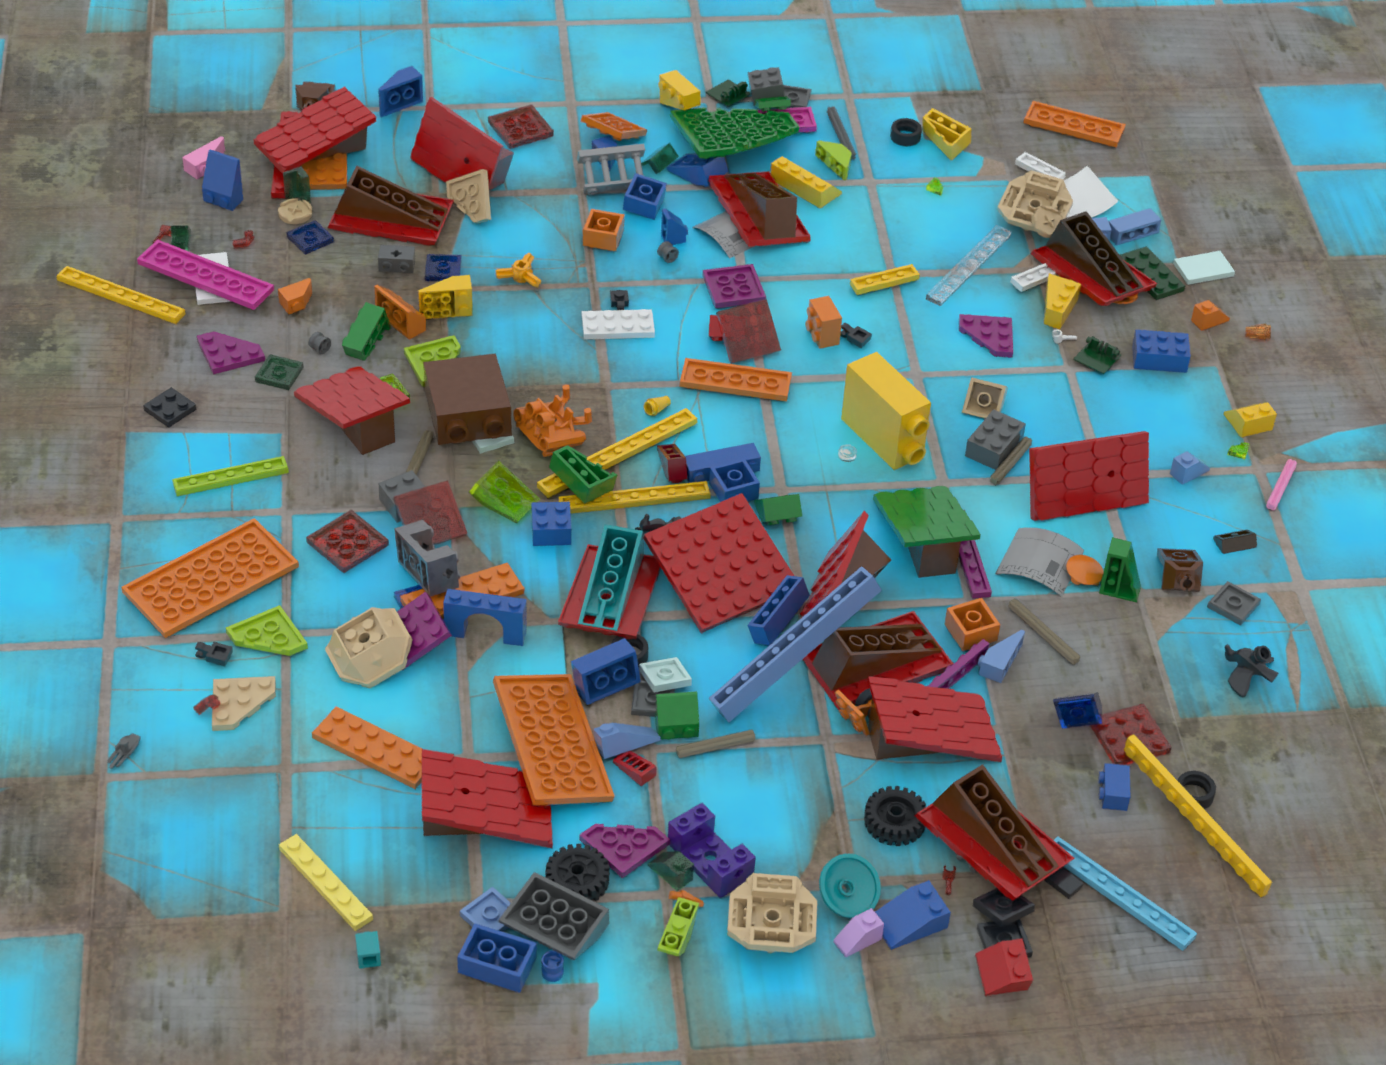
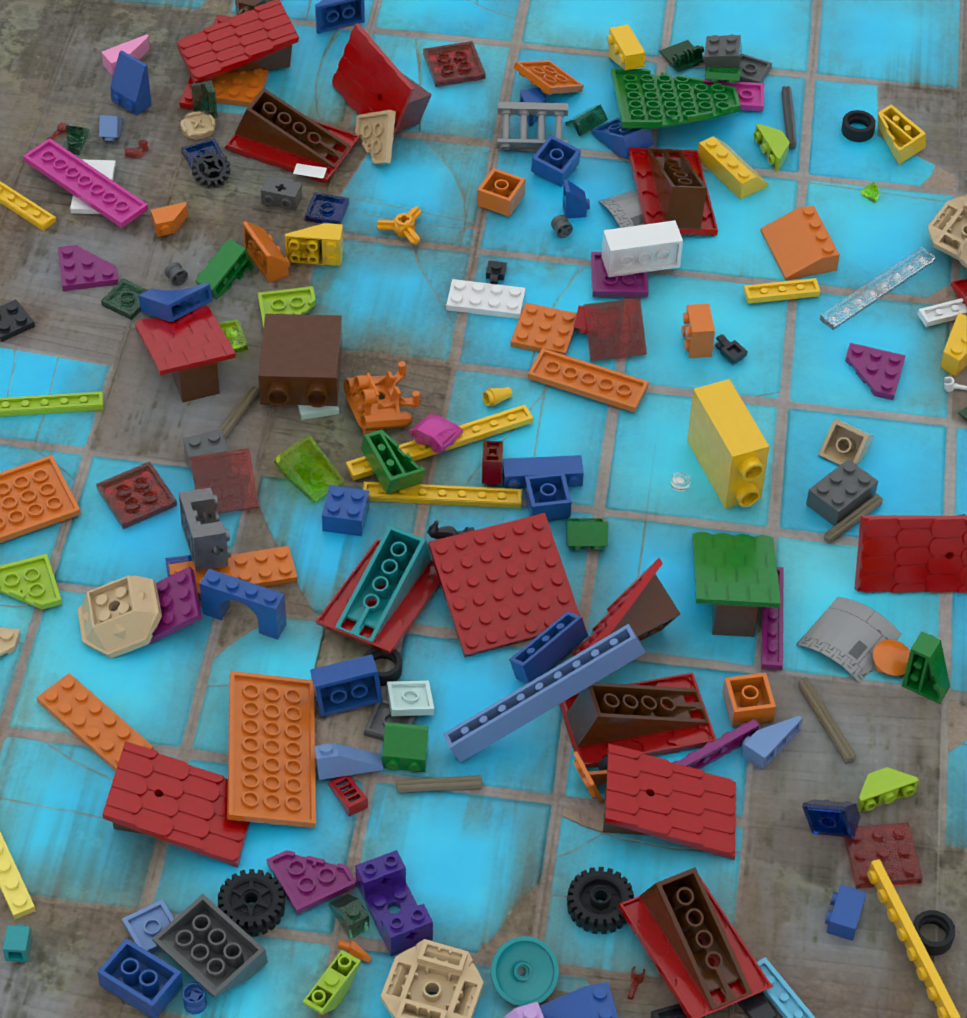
camera: 15 degrees right, 5 degrees up
(212, 223) = (110, 127): none -> medium blue slope
(322, 246) = (207, 162): none -> black gear
(327, 368) = (174, 303): none -> blue arch
(416, 235) = (308, 170): none -> white sticker
(613, 442) = (436, 432): none -> dark pink slope
(680, 341) = (544, 328): none -> orange plate
(751, 258) = (642, 248): none -> white piece
(889, 237) = (801, 244): none -> orange slope
(1115, 677) = (885, 787): none -> lime slope

